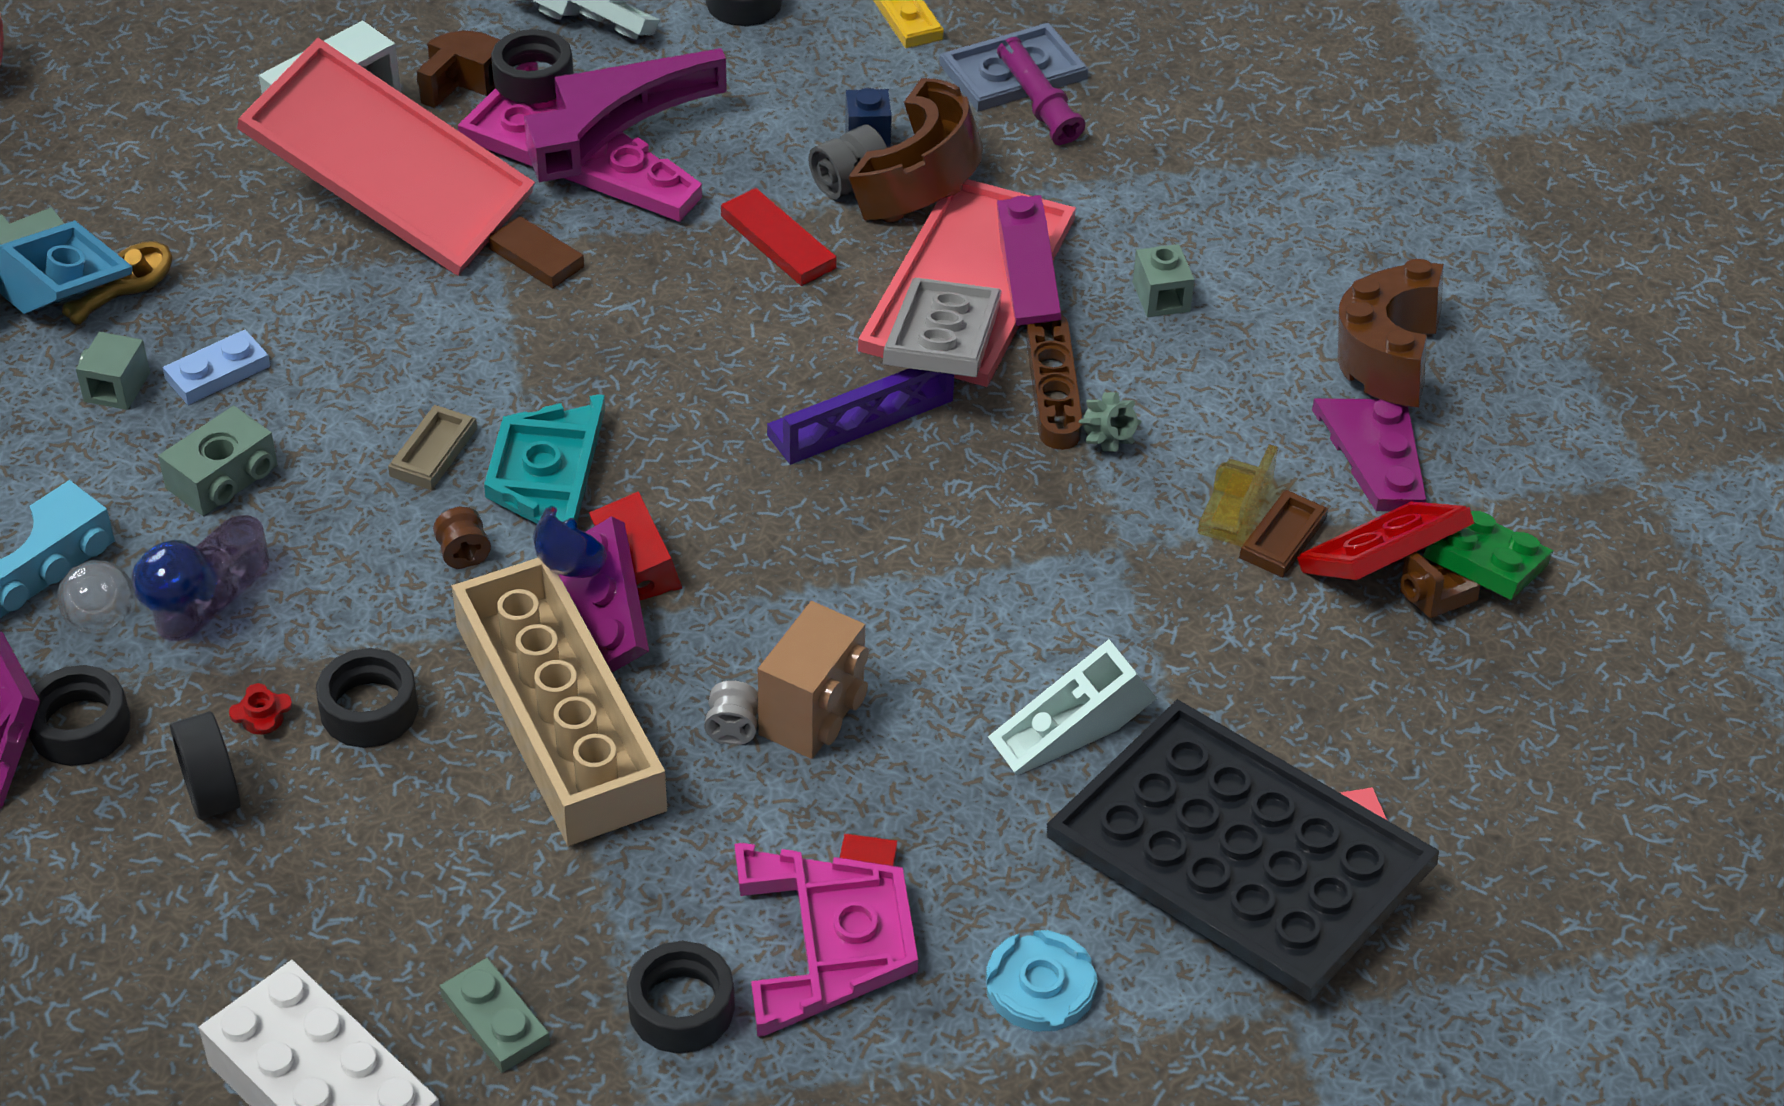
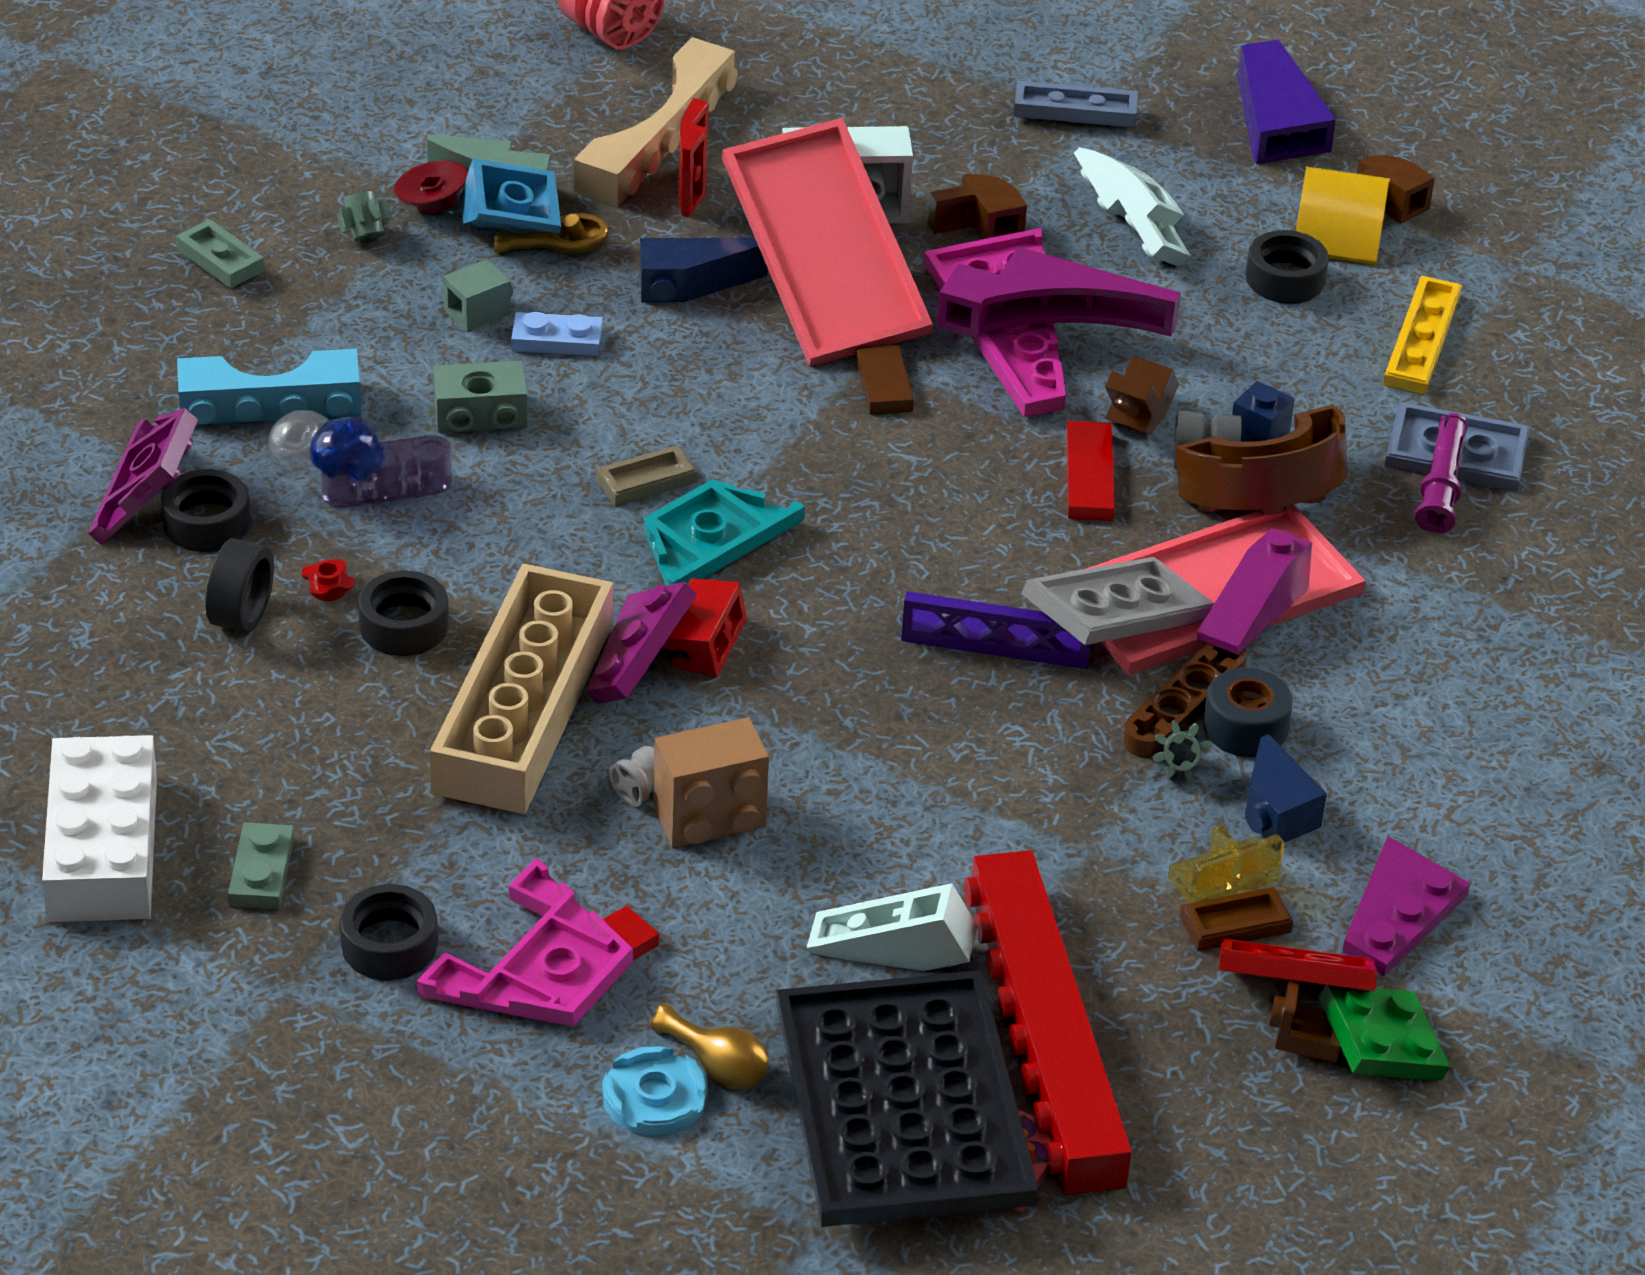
camera: 40 degrees right, 5 degrees down
(107, 183) = (618, 162): none -> tan arch
(182, 145) = (693, 156): none -> red slope
(277, 242) = (696, 266): none -> dark blue slope
(461, 537) = (588, 545): reddish brown wheel -> none
(527, 47) = (1025, 215): black tyre -> none
(566, 548) = (623, 581): clear blue hair -> none
(760, 151) = (1141, 395): none -> reddish brown brick
(1069, 906) = (727, 1054): none -> pearl gold piece
(1116, 358) = (1245, 707): none -> black wheel
(1163, 280) = (1366, 674): sand green brick -> none
(1209, 412) = (1282, 795): none -> dark blue slope
(1267, 705) = (1048, 1024): none -> red brick
(1385, 329) = (1517, 802): reddish brown brick -> none

